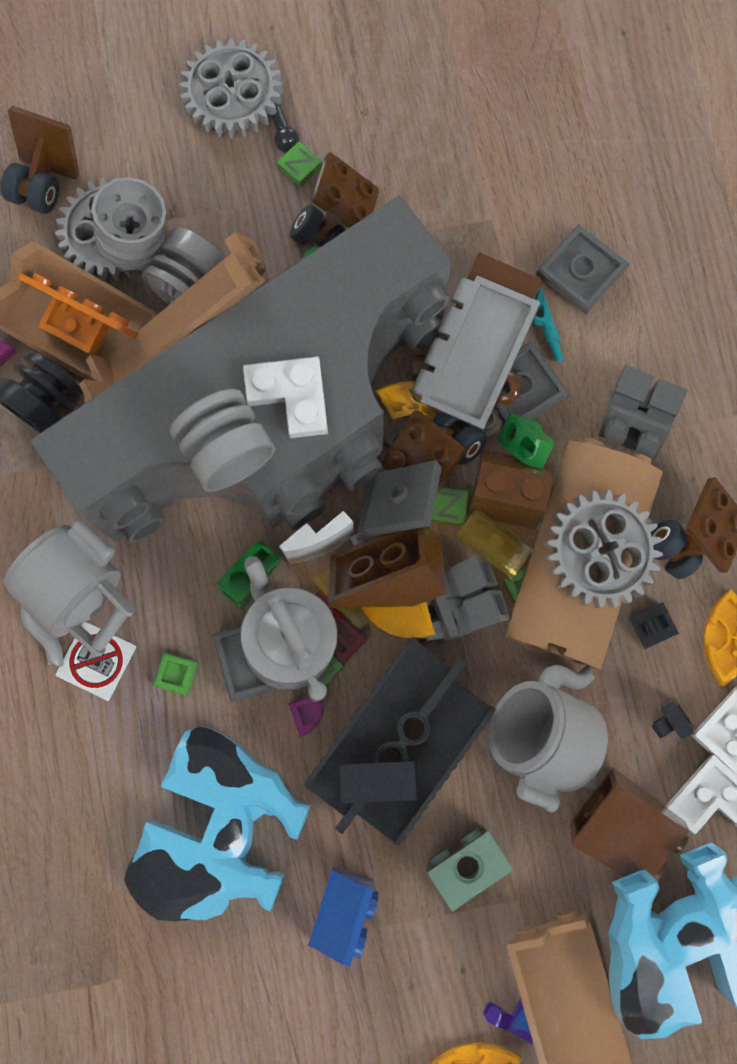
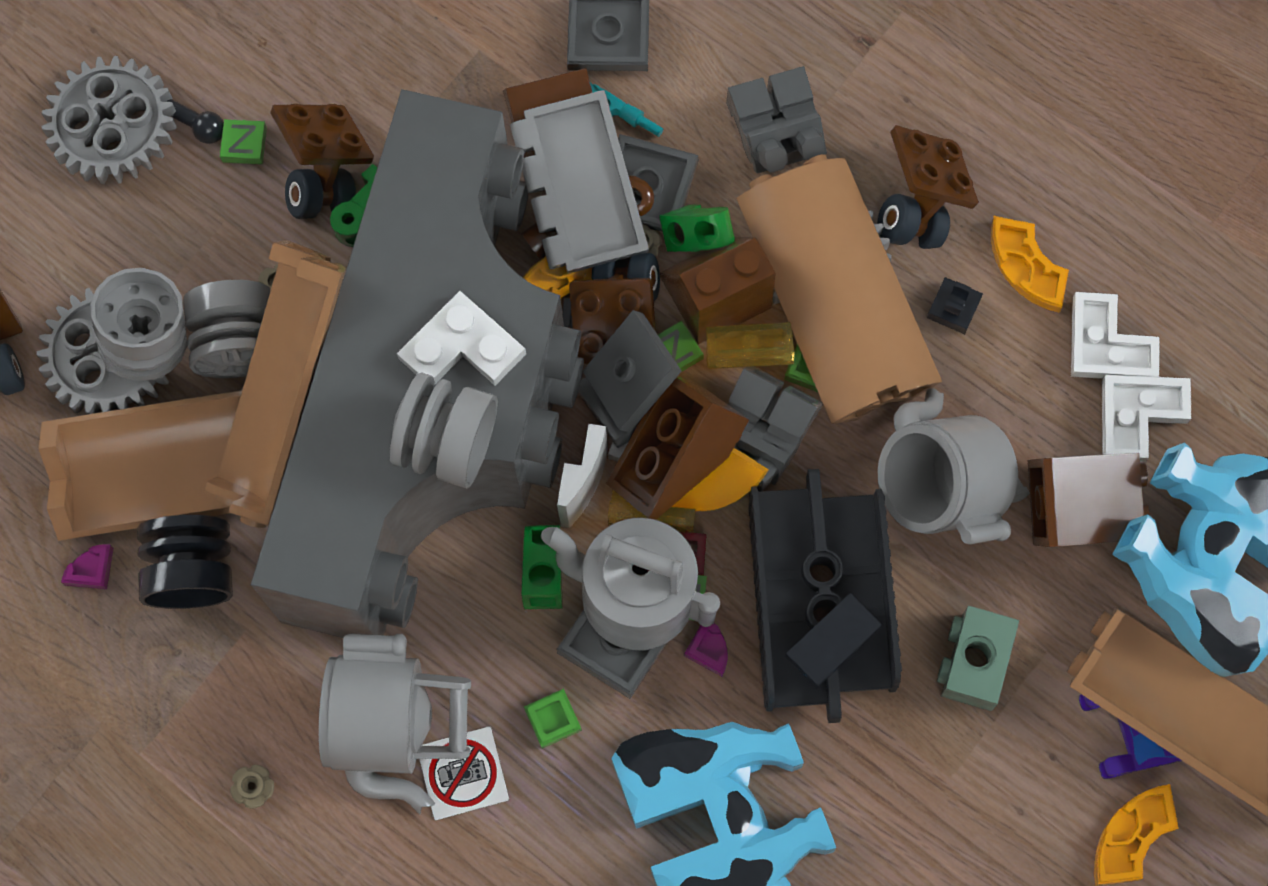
camera: 40 degrees left, 5 degrees down
(75, 322) = (155, 465): orange bracket -> none
(342, 914) = (905, 791): blue slope -> none
(574, 563) = (839, 299): light grey gear -> none
(674, 719) = (1044, 372): black tile -> none

